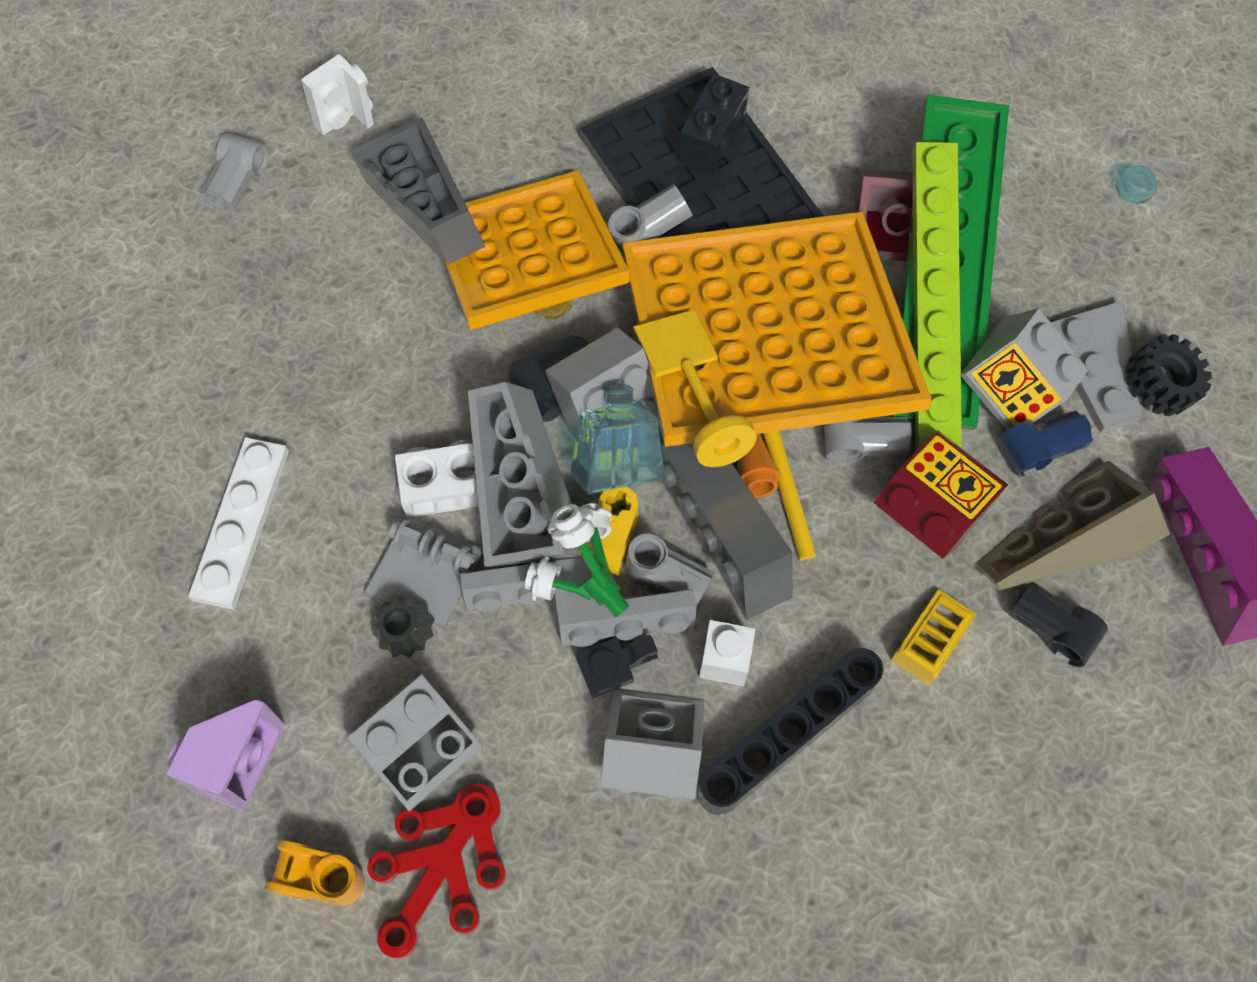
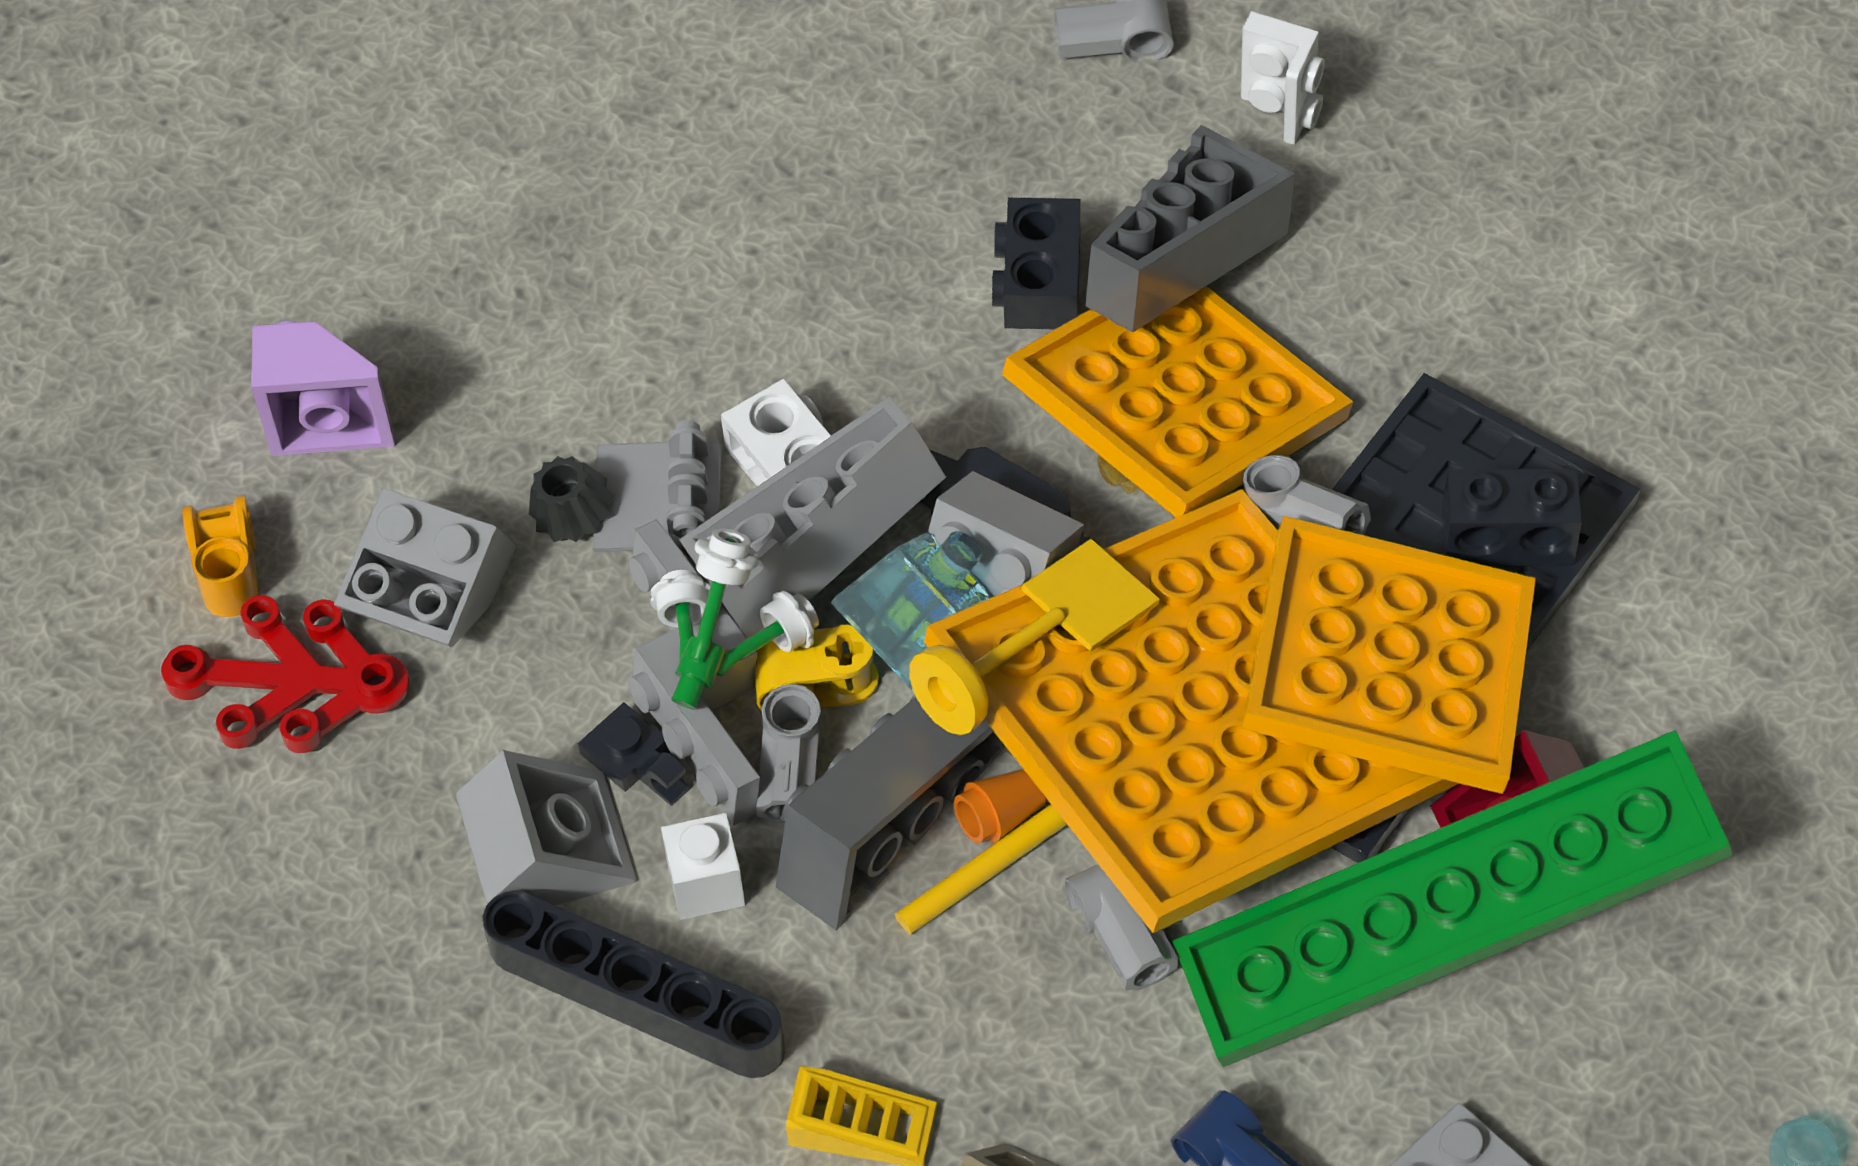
camera: 70 degrees right, 10 degrees down
(239, 524) = (626, 276): white plate -> none
(391, 275) = (1040, 262): none -> black brick
(782, 217) = (1391, 655): none -> light orange plate
(937, 287) = (1354, 906): lime plate -> none
(940, 494) = (1059, 1029): slope -> none
(1024, 369) = (1326, 1071): slope -> none

